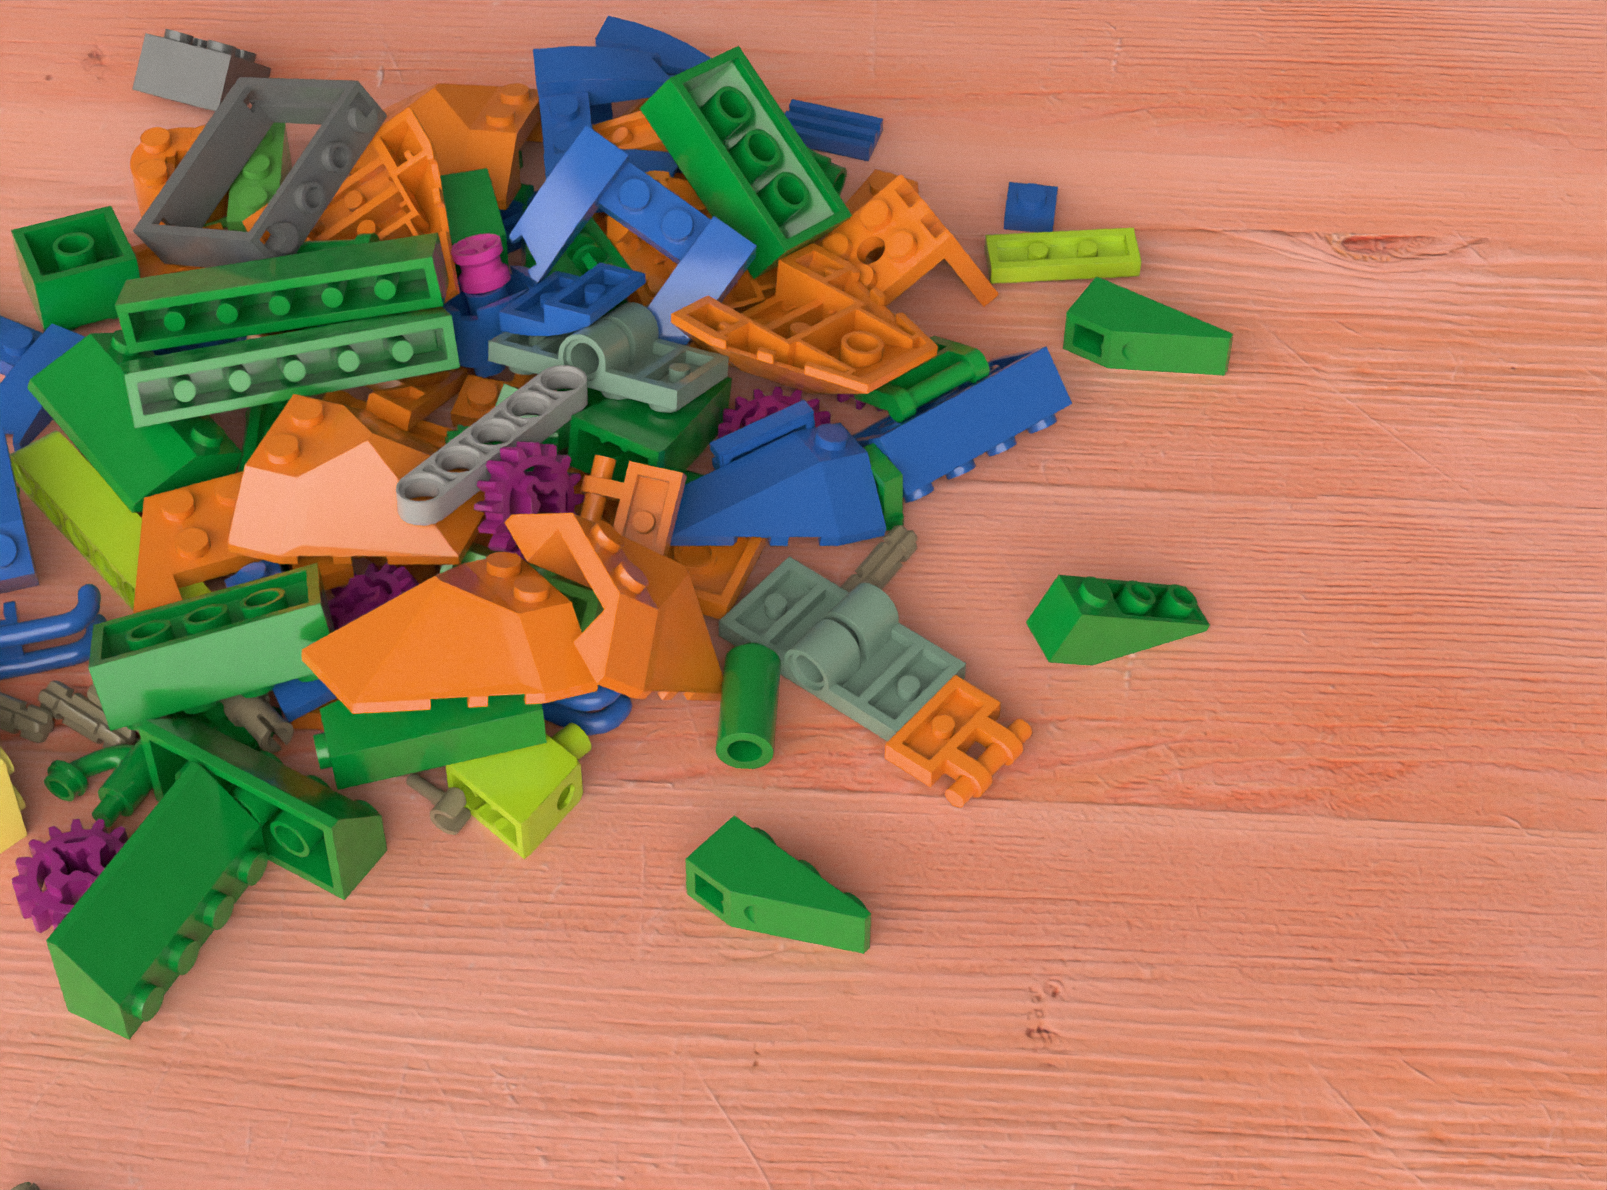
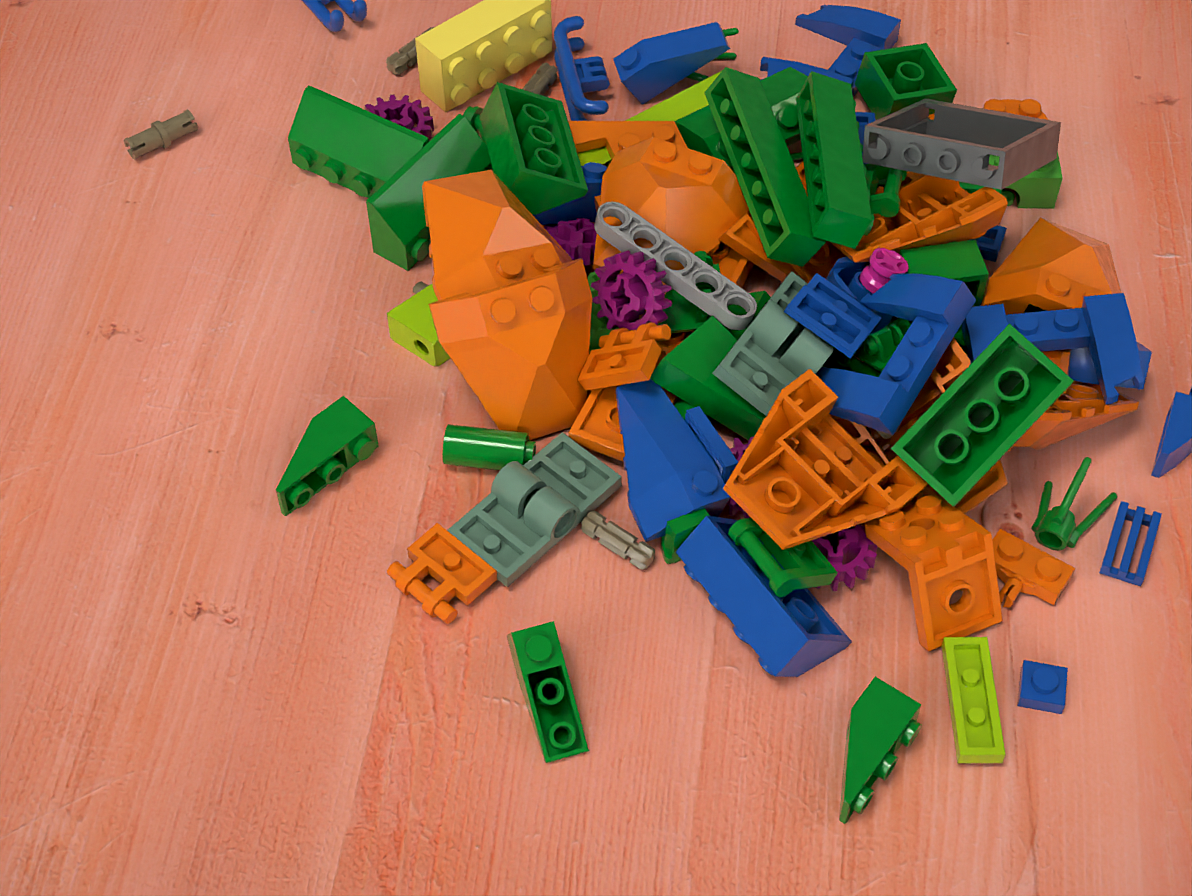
camera: 95 degrees right, 5 degrees up
(193, 69) = (1134, 144): slope -> none

